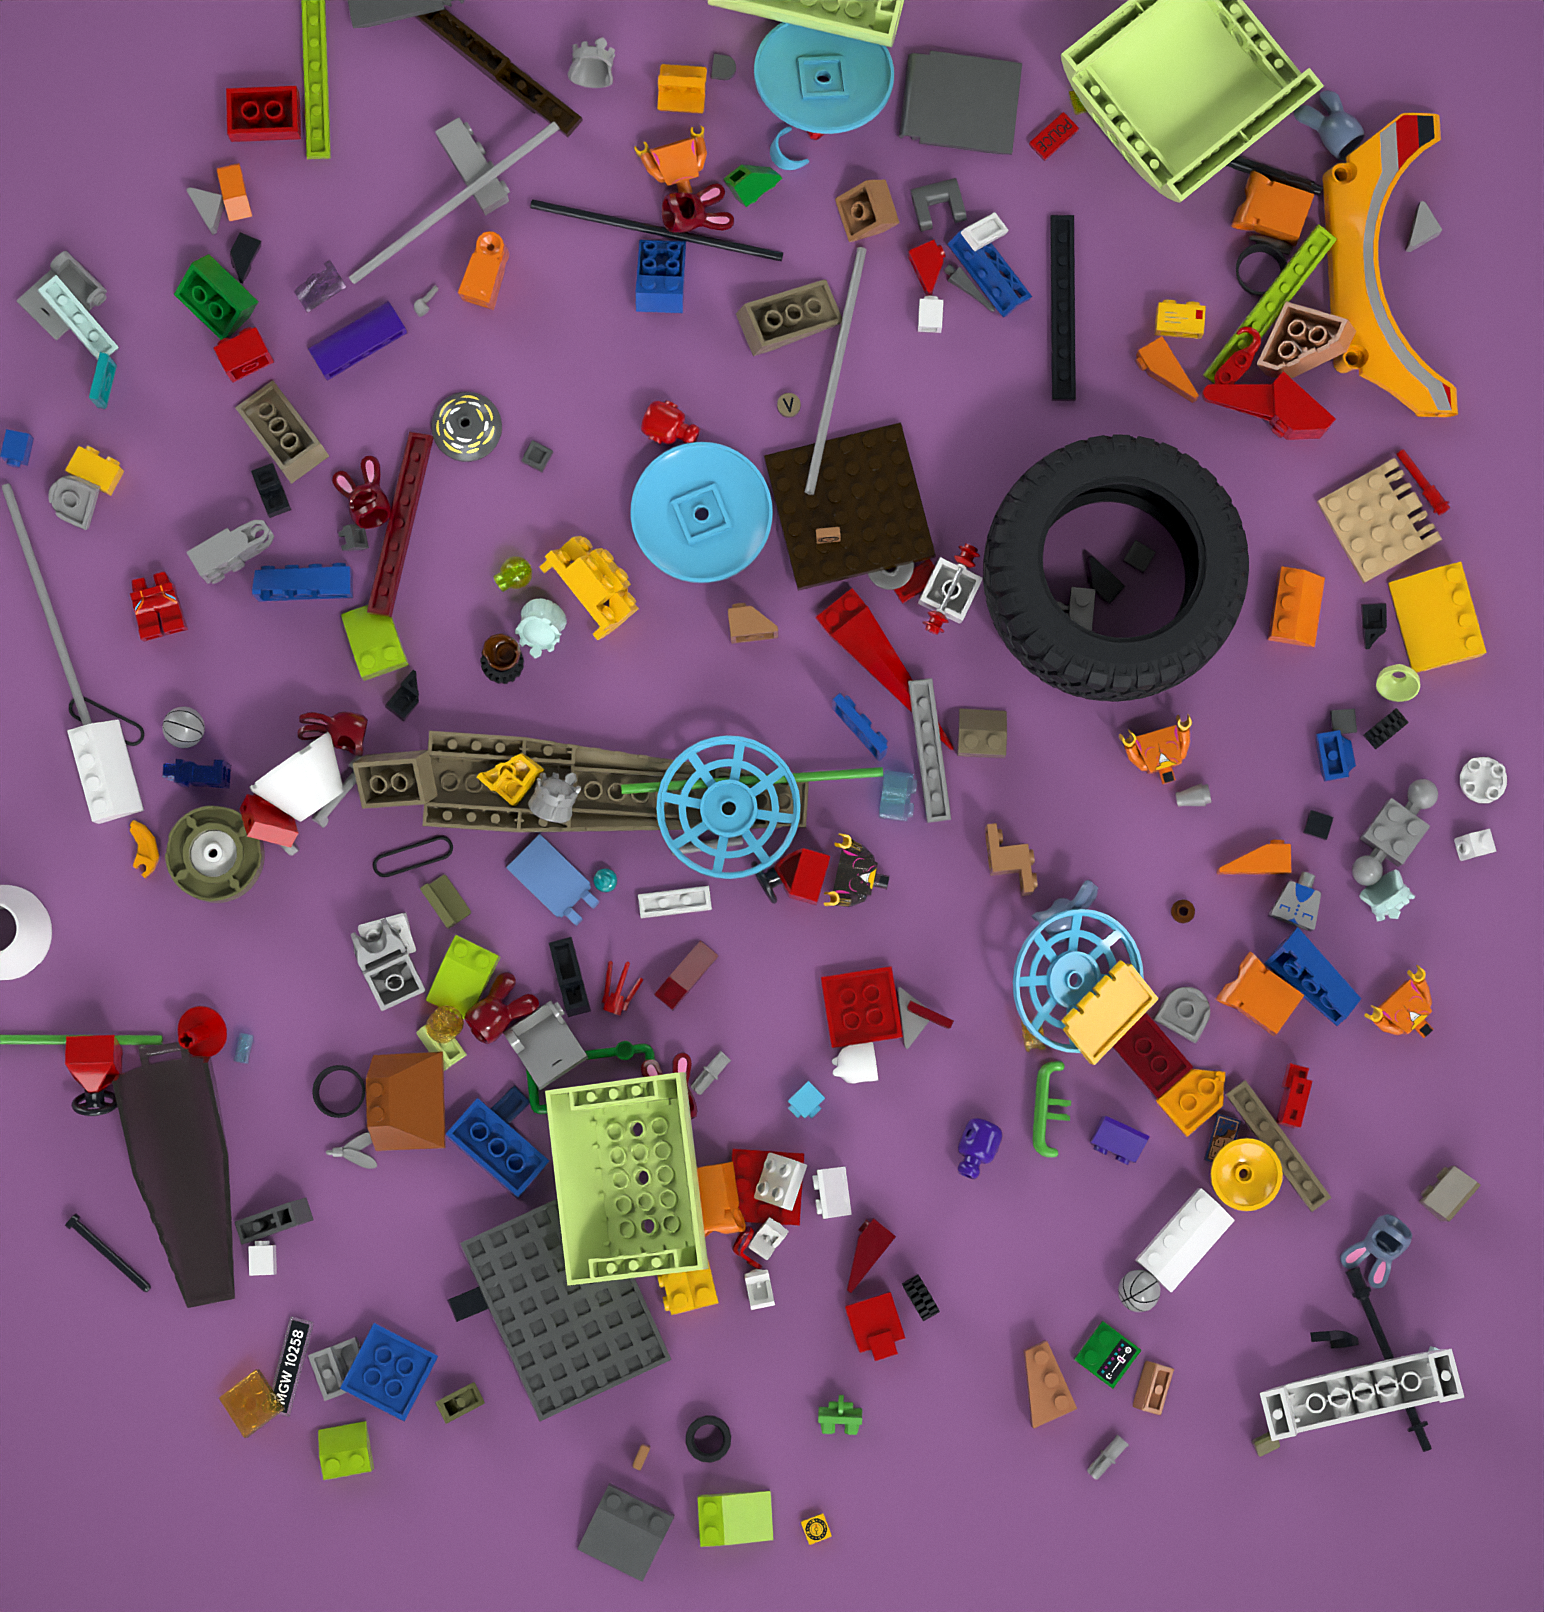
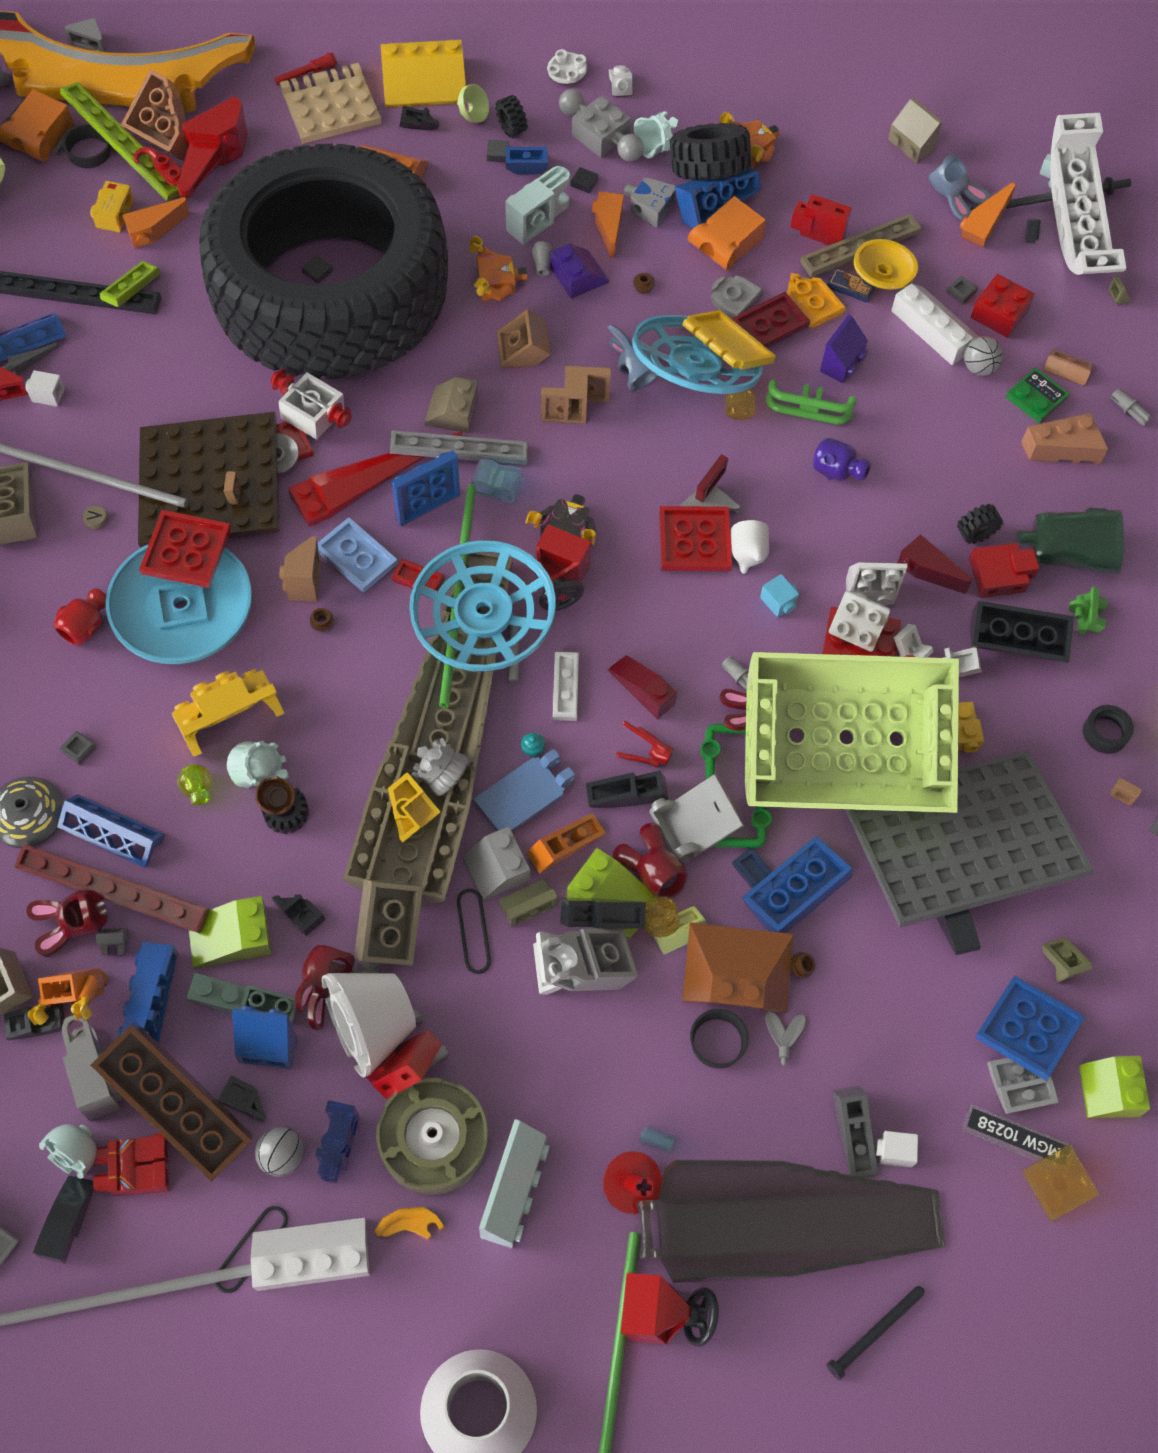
camera: 85 degrees left, 20 degrees down
(106, 562) = (64, 1220): none -> black slope
(162, 553) = (71, 1148): none -> light aqua cylinder
(183, 930) = (513, 1185): none -> light aqua slope
(205, 629) = (172, 1101): none -> reddish brown brick
(230, 684) = (242, 1098): none -> black slope
(275, 693) = (263, 1037): none -> blue slope
(296, 519) = (69, 987): none -> orange torso
(314, 665) = (225, 996): none -> sand green slope
(420, 1165) = (803, 964): none -> reddish brown plate
(433, 970) = (602, 913): none -> black slope
(462, 508) = (114, 822): none -> blue fence
(476, 867) = (497, 864): none -> light grey slope
(507, 927) = (565, 842): none -> orange slope
(708, 645) = (321, 613): none -> reddish brown plate
(751, 506) = (185, 549): none -> red plate
(773, 733) = (408, 572): none -> red tile
(785, 671) = (356, 555): none -> light blue plate
(796, 1346) = (1021, 631): none -> black slope
(917, 1400) = (1078, 539): none -> clear green torso
(1076, 794) = (523, 341): none -> medium nougat slope
(1078, 366) = (130, 283): none -> lime tile
(1186, 838) = (576, 270): none -> dark purple slope
(1216, 1309) = (1002, 305): none -> red brick
(1238, 1264) = (962, 289): none -> dark grey tile
(1259, 780) = (537, 204): none -> light aqua brick
(1331, 1280) = (985, 217): none -> orange slope
(1338, 967) = (710, 151): none -> black tyre

